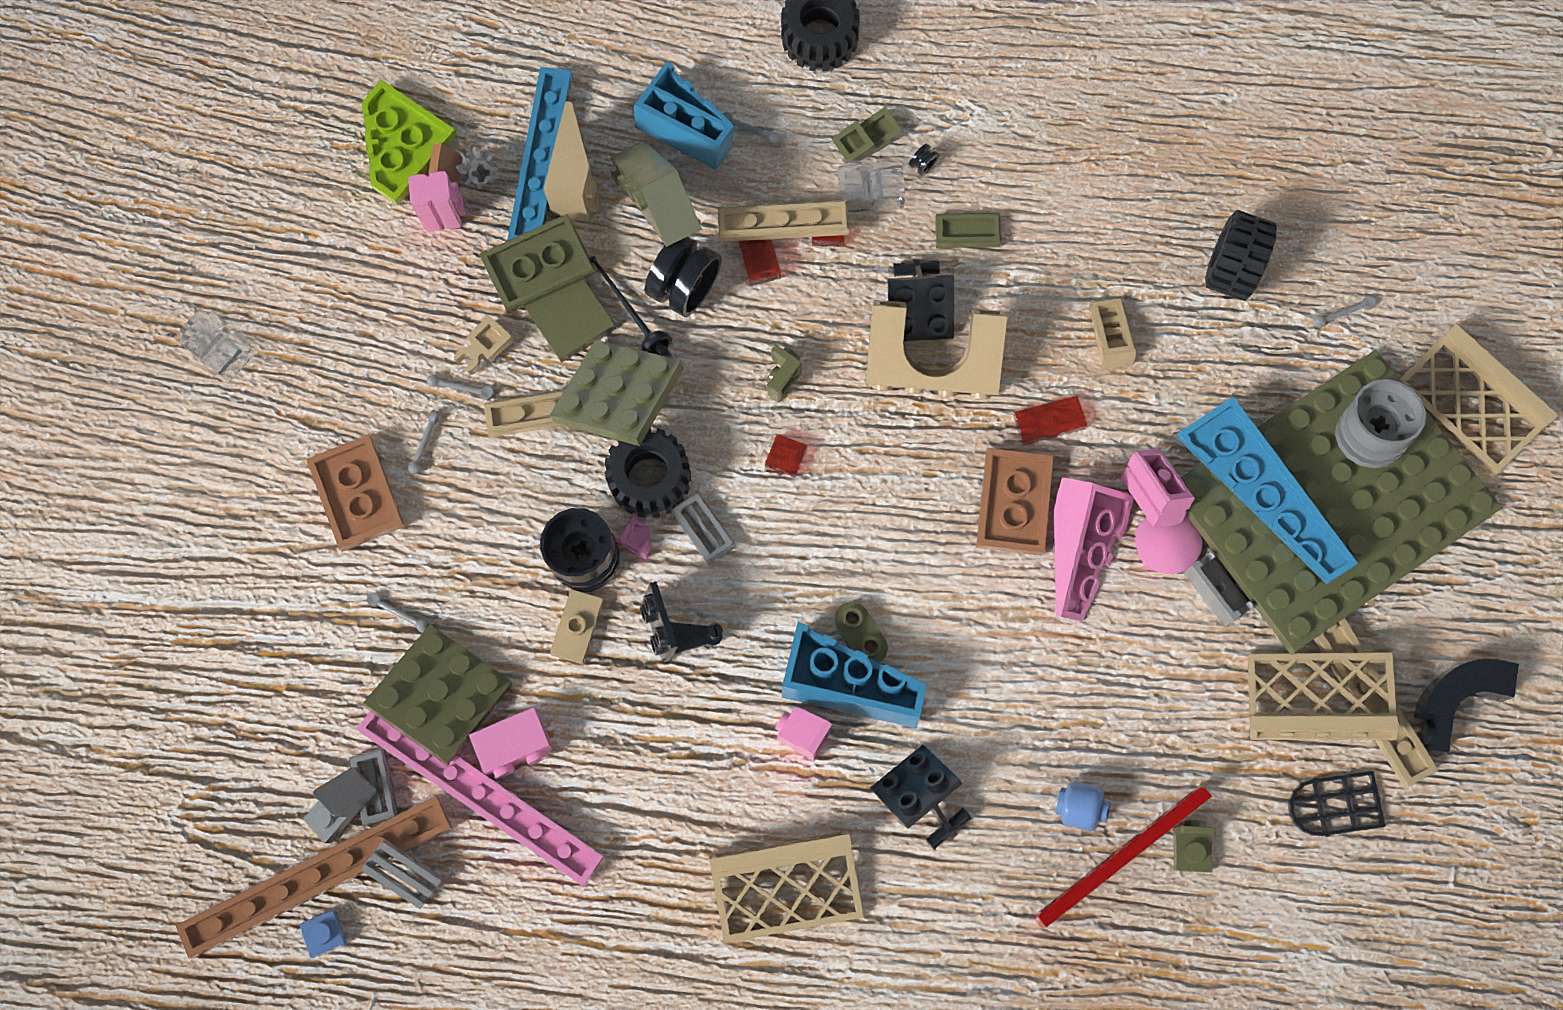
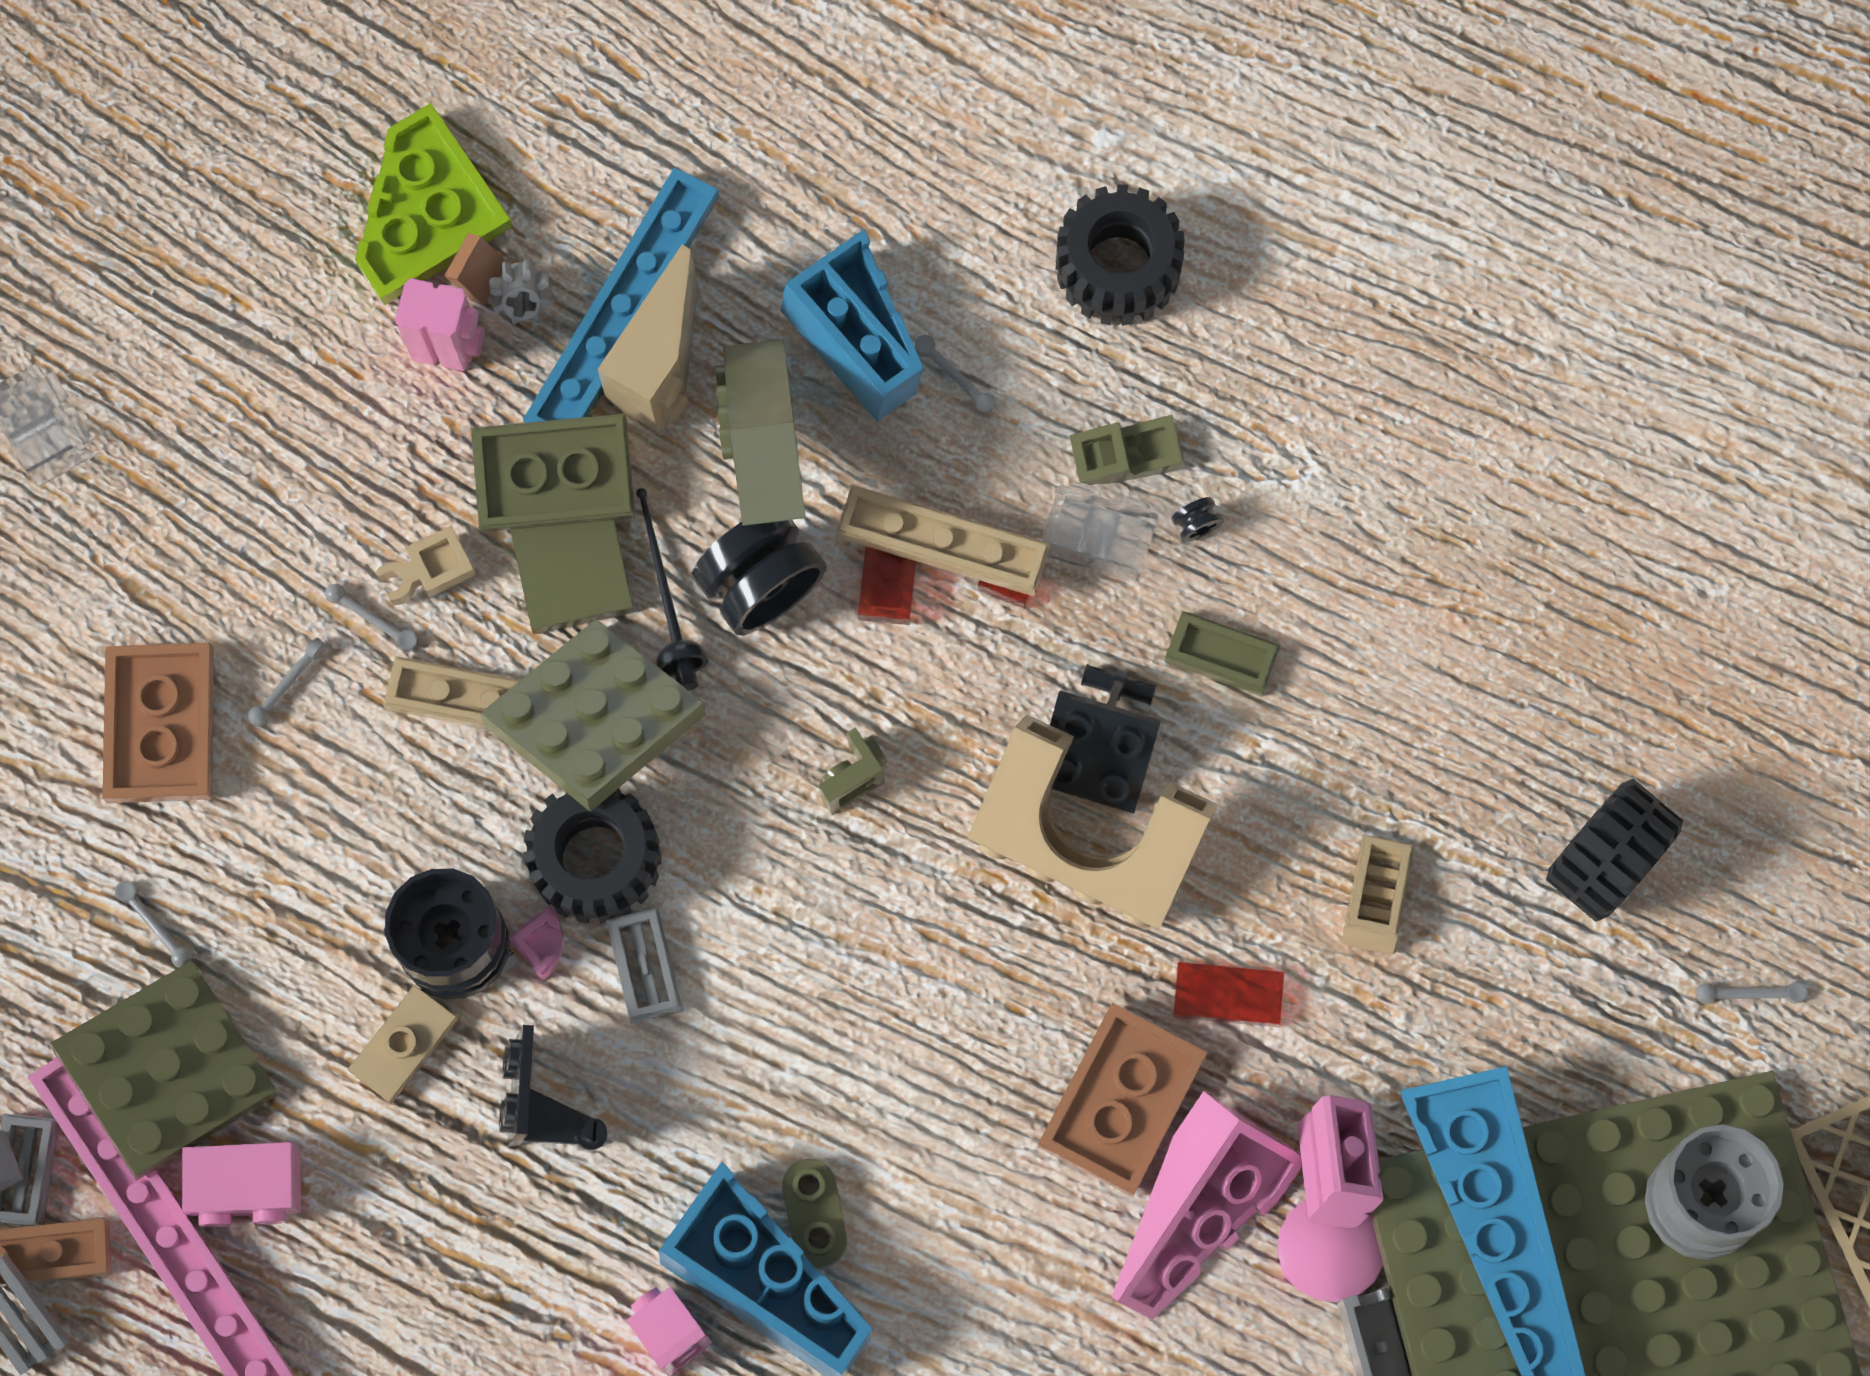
camera: 20 degrees right, 0 degrees up
(786, 455) = (810, 901): clear red tile -> none

